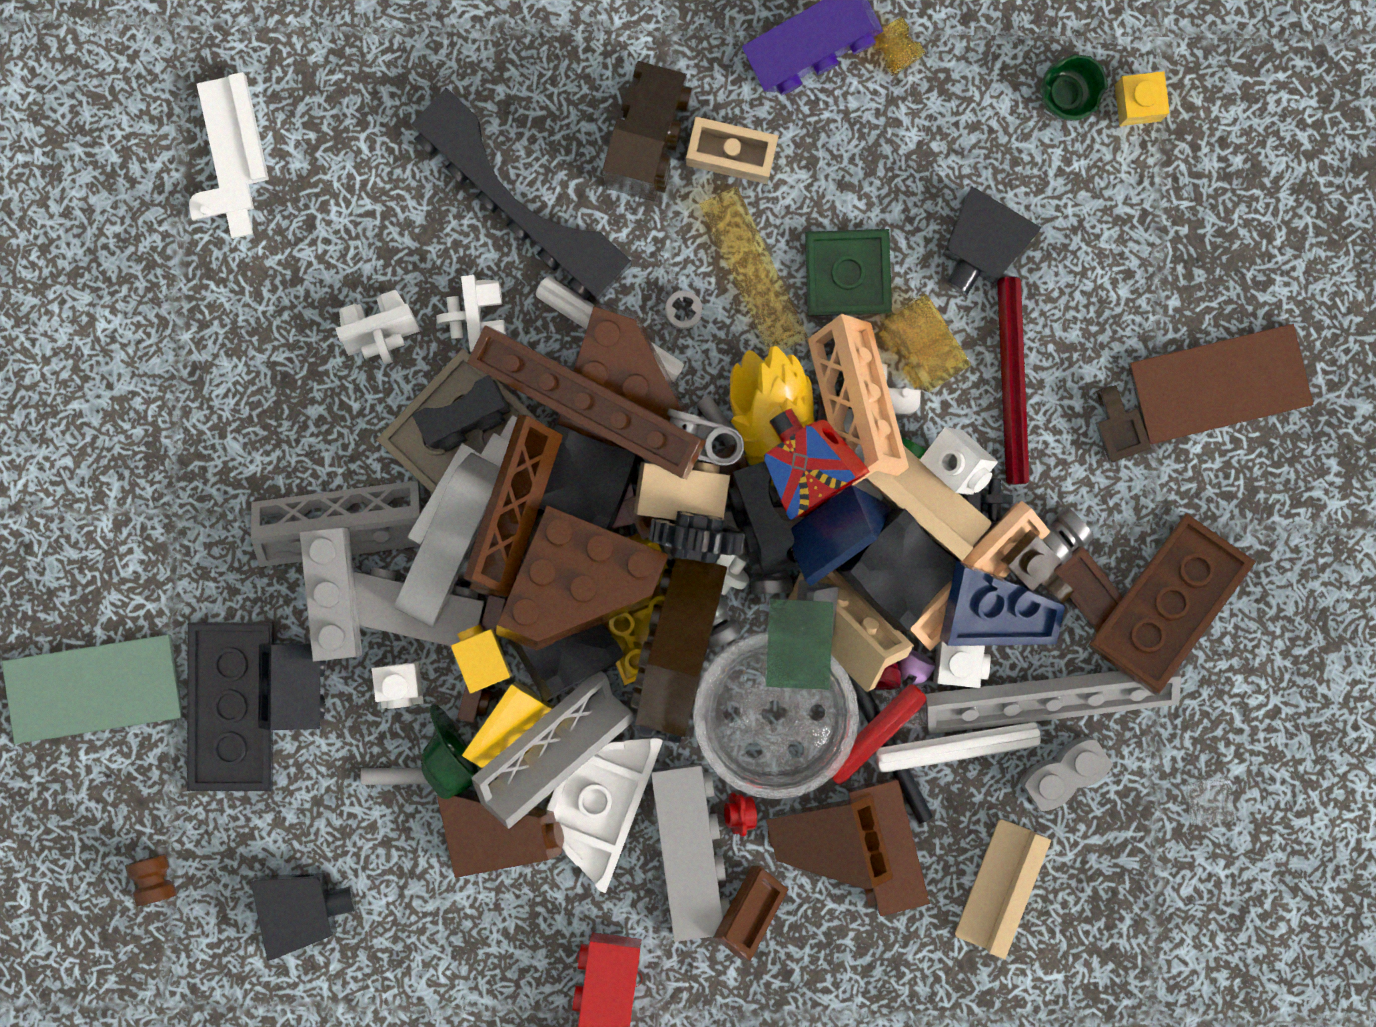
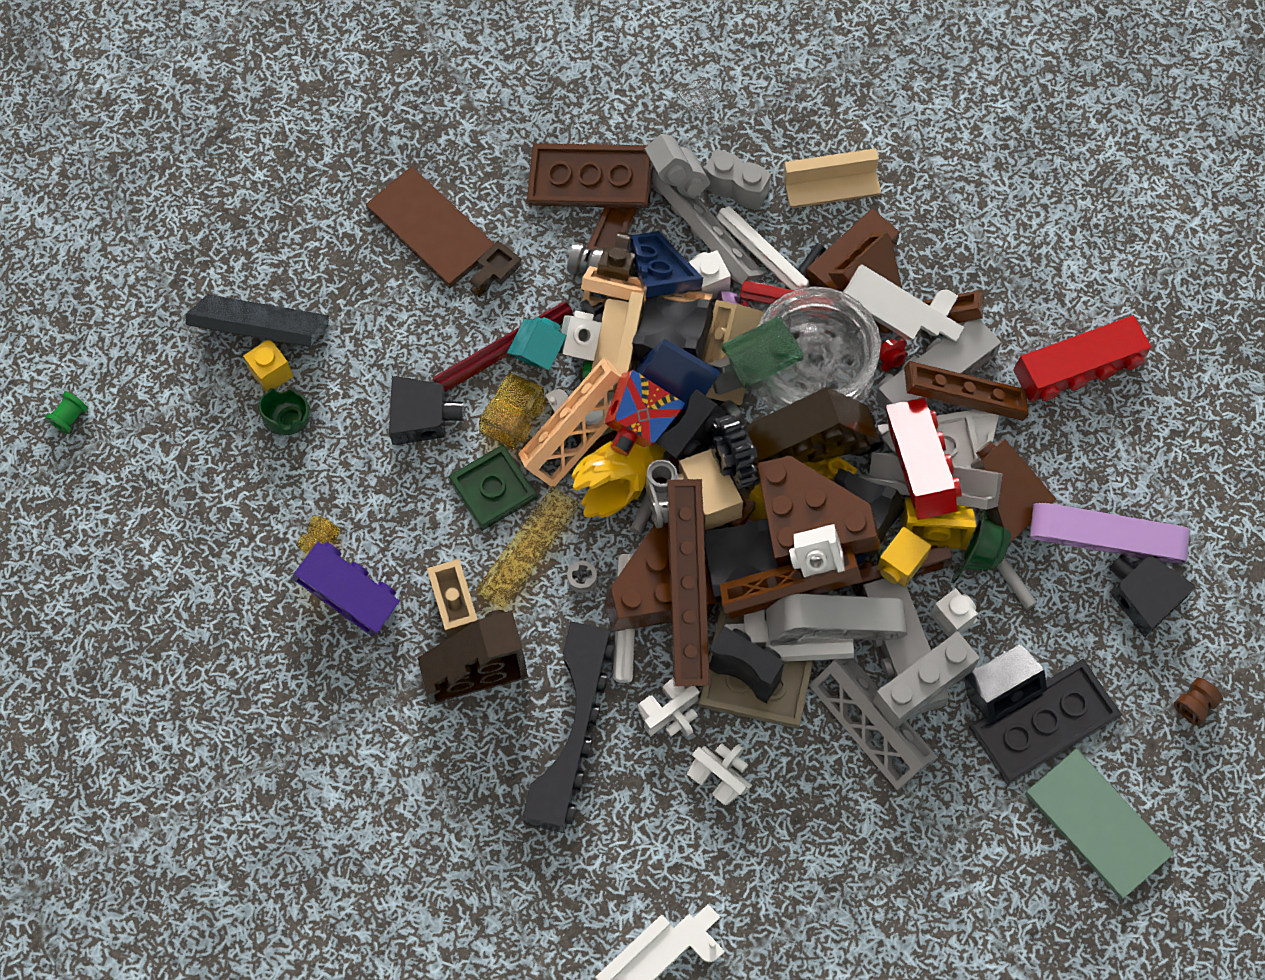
camera: 120 degrees left, 20 degrees down
(382, 909) = (1109, 533): none -> lavender beam
(516, 549) = (817, 551): none -> white brick
(578, 749) = (922, 458): none -> brick
(637, 860) = (966, 390): none -> reddish brown tile
(774, 845) = (901, 310): none -> white piece
(981, 410) = (537, 342): none -> teal brick
(1113, 705) = (677, 166): none -> light grey brick
(1206, 115) = (257, 320): none -> black tile

